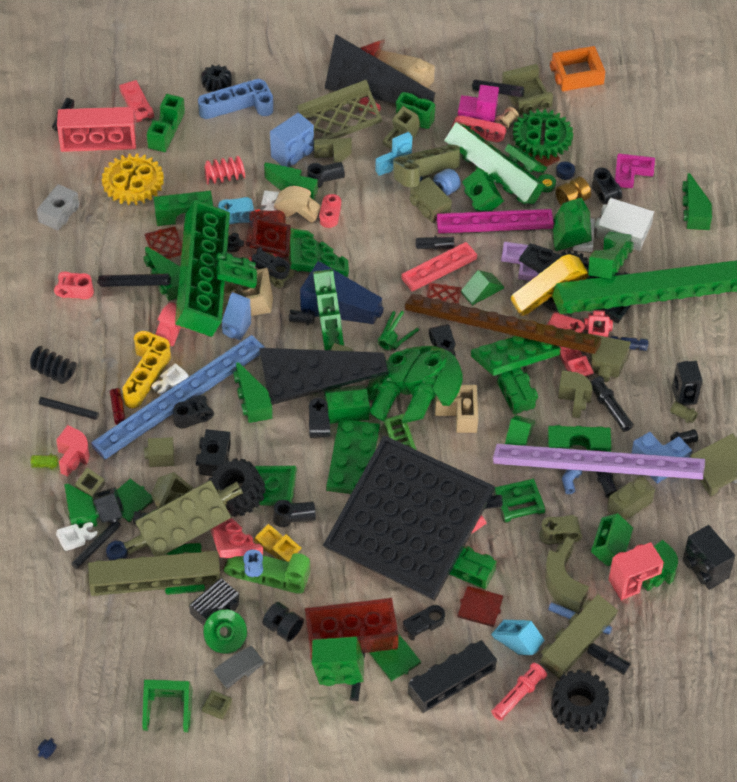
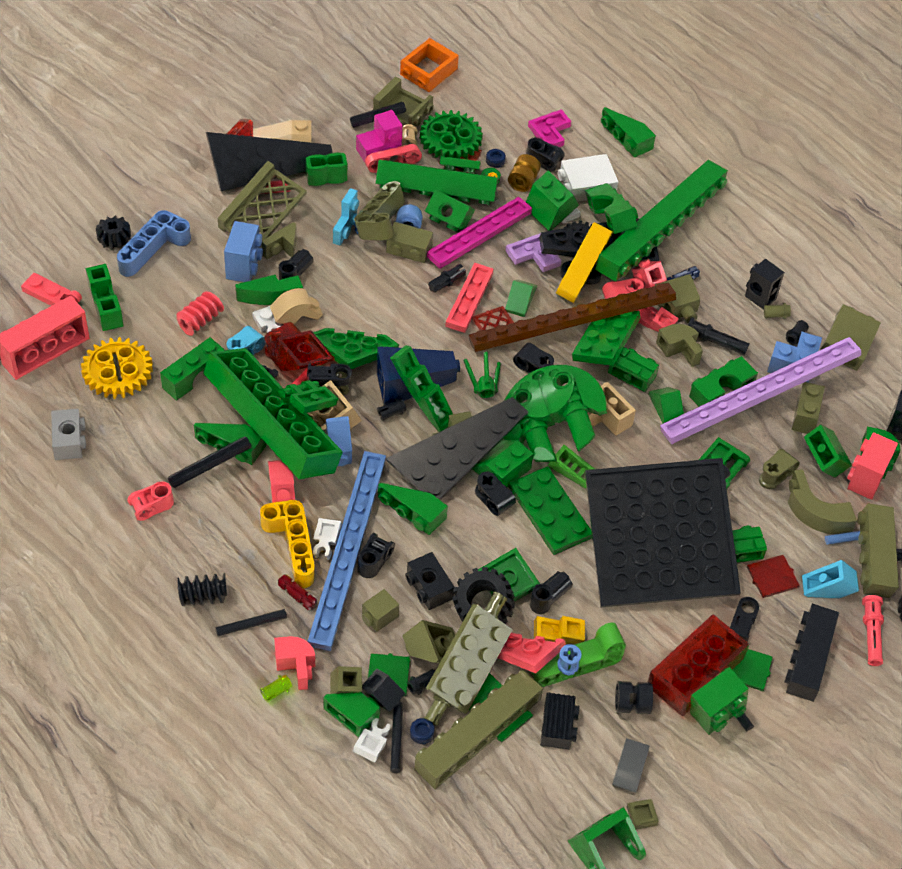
camera: 40 degrees left, 0 degrees up
(160, 232) = (207, 402): clear red window -> none
(235, 633) = (599, 739): green dish -> none
(332, 207) = (326, 295): coral plate -> none
(403, 122) = (331, 192): olive brick -> none
(568, 478) = (741, 422): medium blue arm -> none
(606, 482) = (776, 407): black axle -> none

